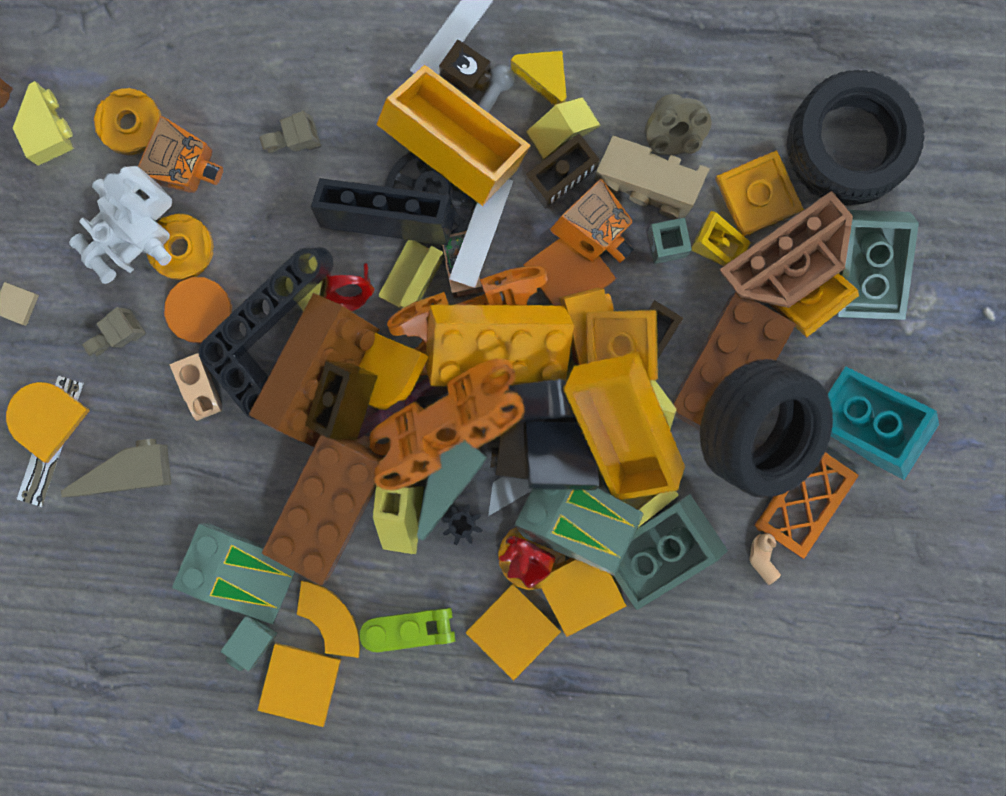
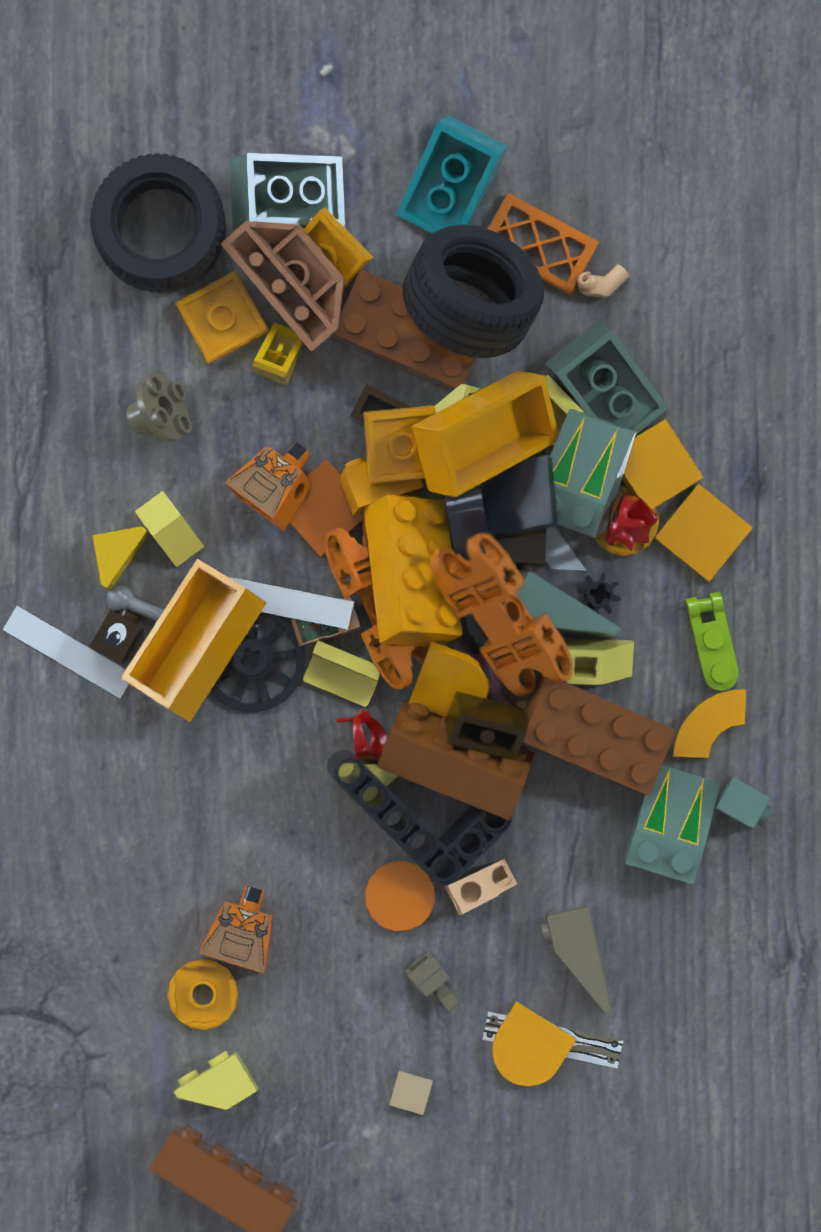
camera: 100 degrees left, 0 degrees up
(124, 223) = (319, 979): white piece -> none
(199, 249) = (312, 923): light orange tile -> none
(297, 134) = (202, 809): dark tan piece -> none
(299, 684) = (779, 748): light orange tile -> none
(383, 211) = (281, 706): black brick -> none
(562, 171) = (220, 524): dark brown brick -> none
(650, 178) = (218, 431): tan wedge -> none
(669, 240) = (284, 406): sand green brick -> none

